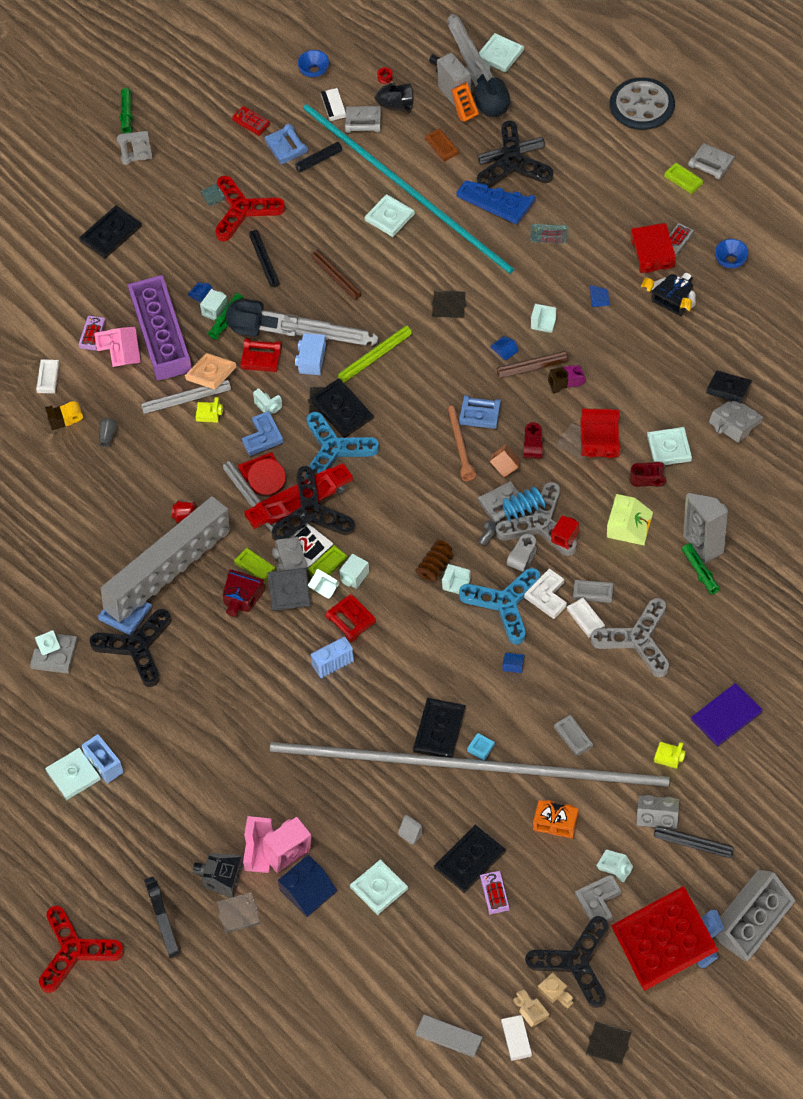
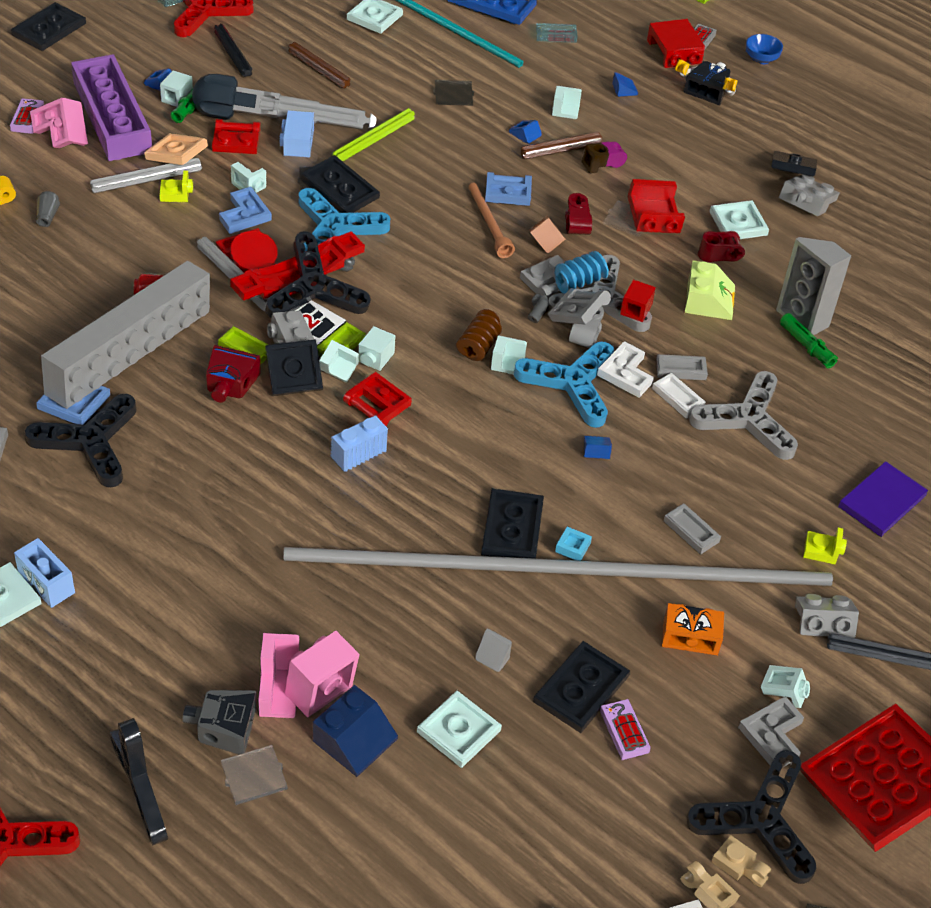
camera: 15 degrees left, 10 degrees down
(512, 542) = (578, 306): none -> light grey plate

